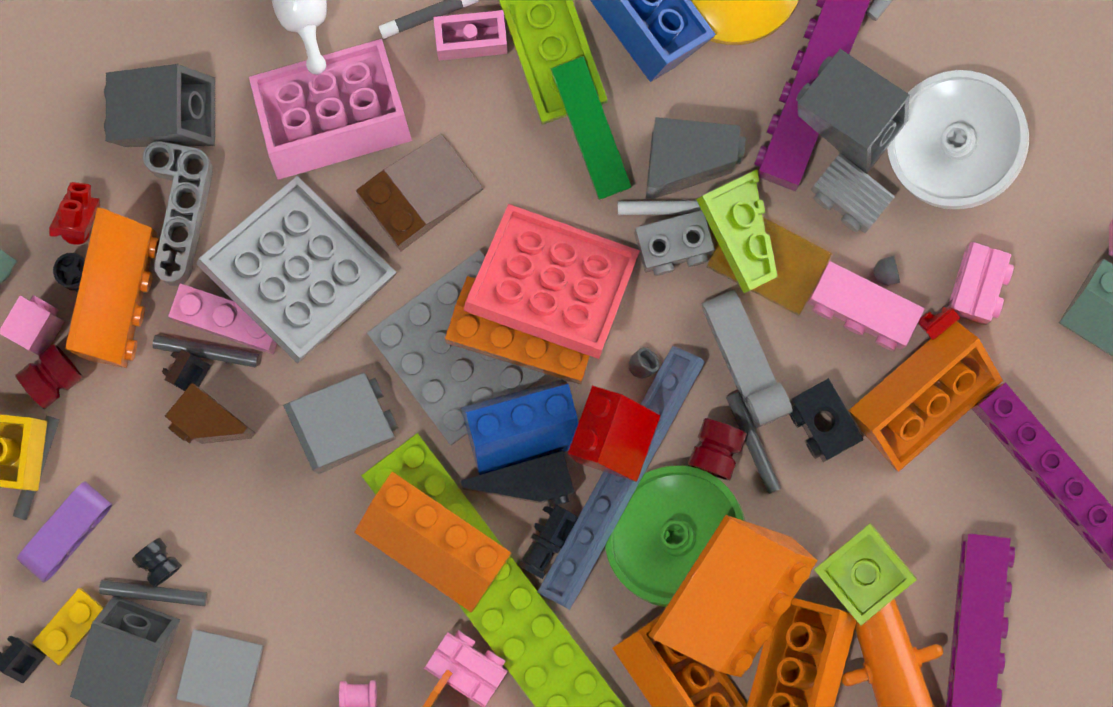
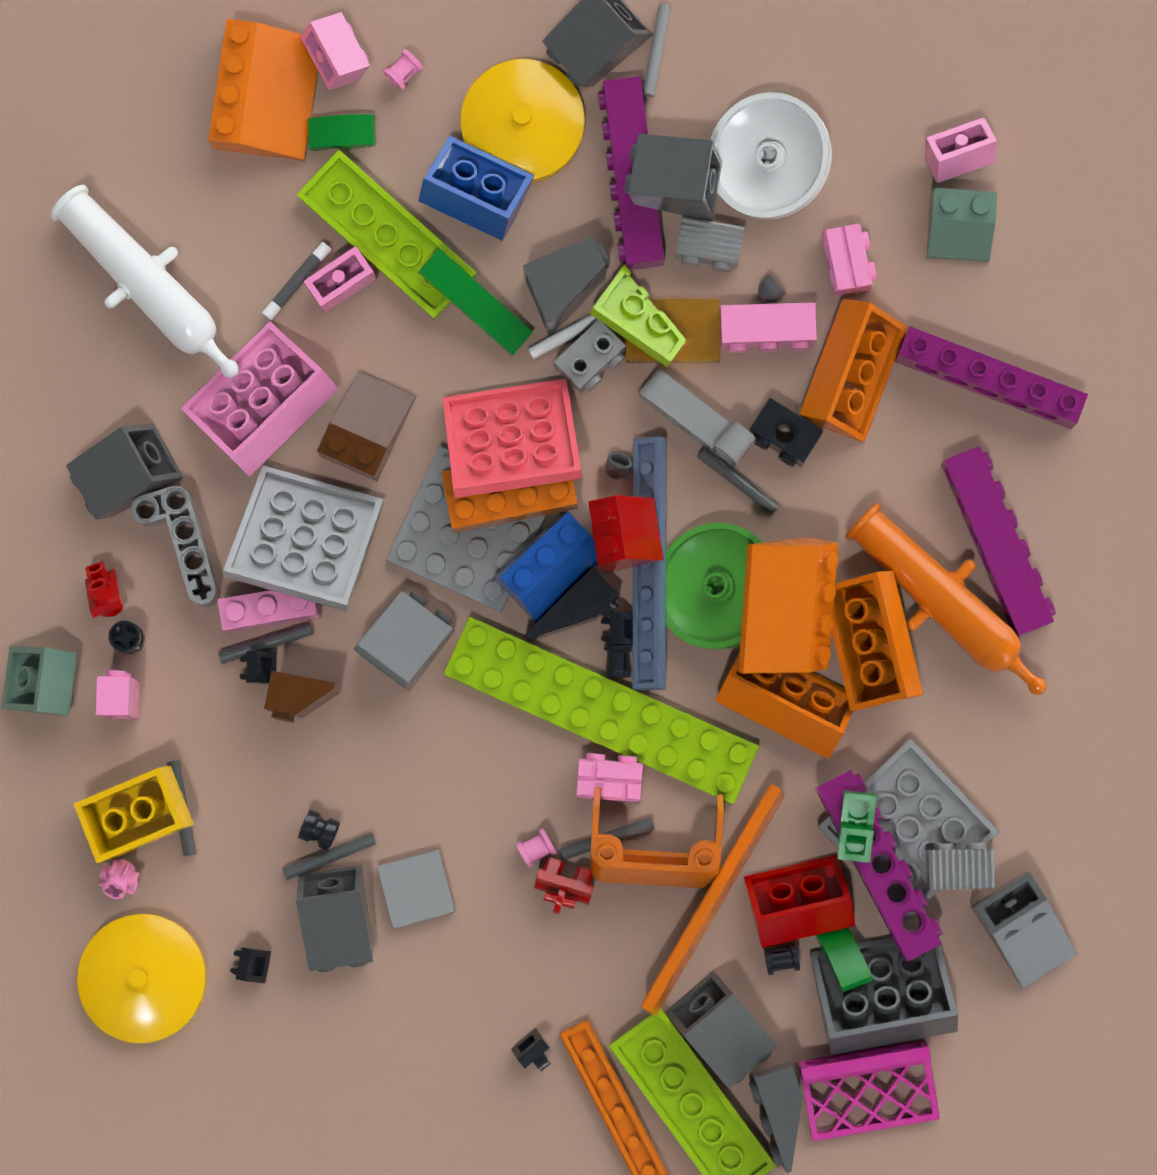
camera: 20 degrees left, 0 degrees up
(50, 375) = (152, 729): dark red wheel -> none
(64, 532) = (232, 845): medium lavender beam -> none
(68, 627) = (277, 918): yellow plate -> none
(112, 290) = (167, 633): orange slope -> none
(432, 542) = (528, 694): orange slope -> none
(717, 448) = (712, 500): dark red wheel -> none
(865, 574) = (881, 533): lime plate -> none
(936, 324) = (832, 309): red tile -> none

